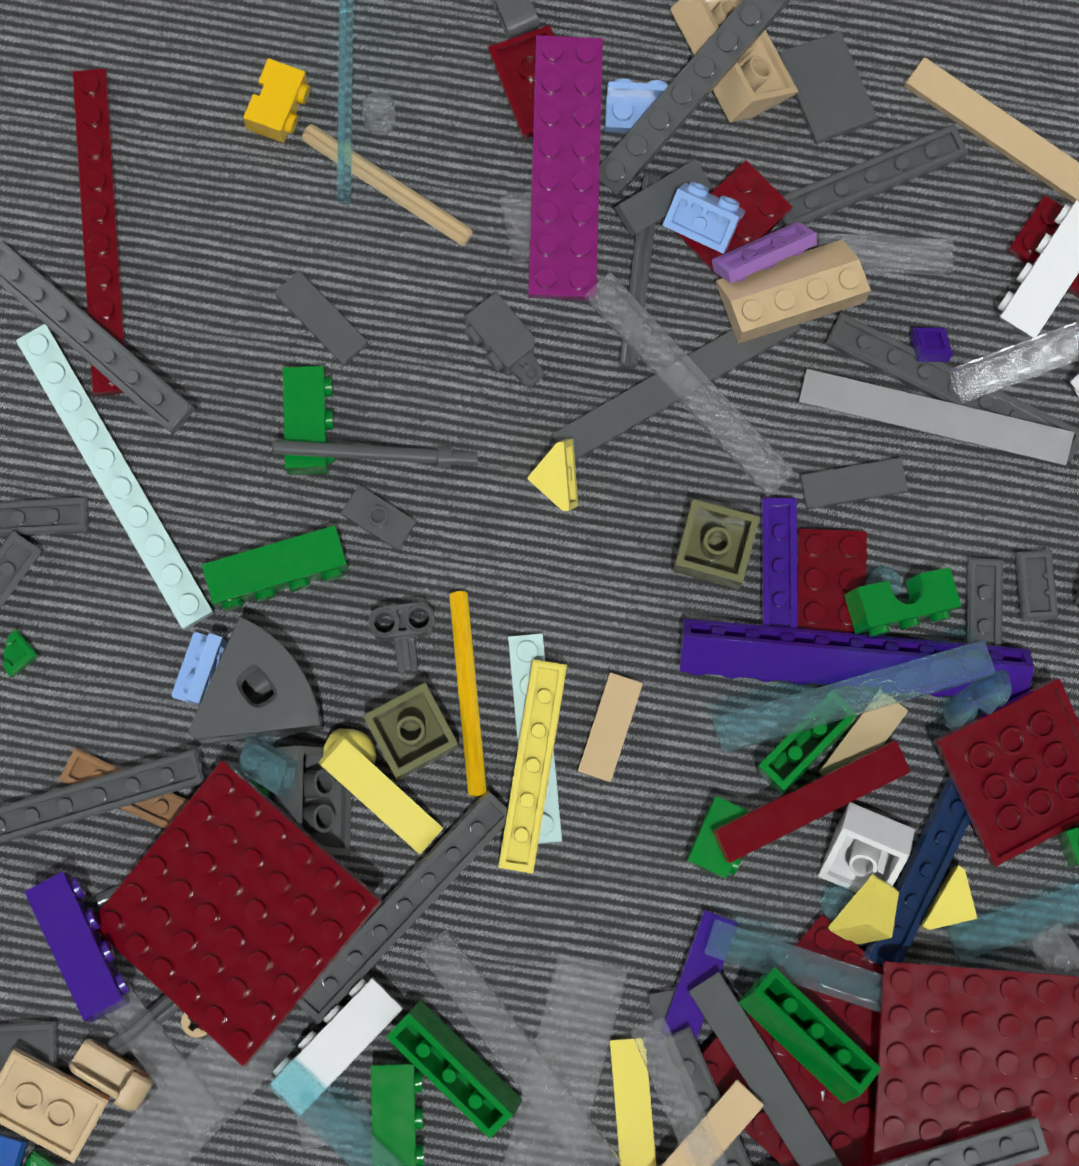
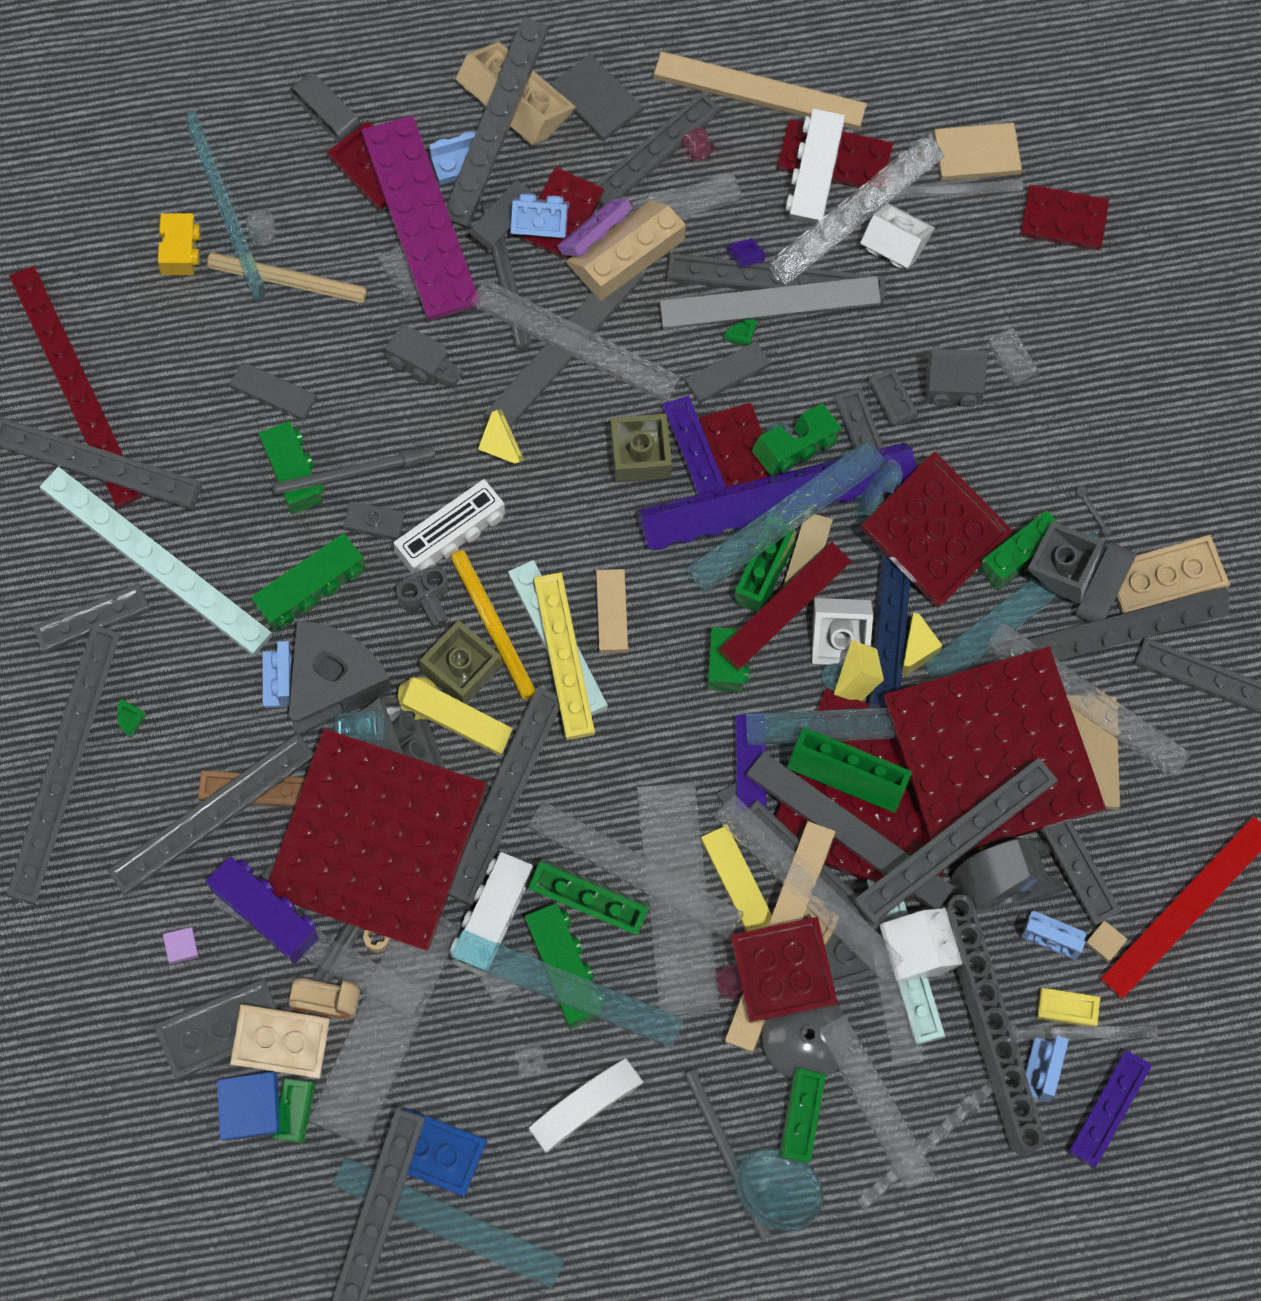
camera: 20 degrees left, 10 degrees down
(460, 560) = (450, 528): none -> white brick
(888, 440) = (741, 333): none -> green tile
(925, 189) = (698, 144): none -> clear pink wheel

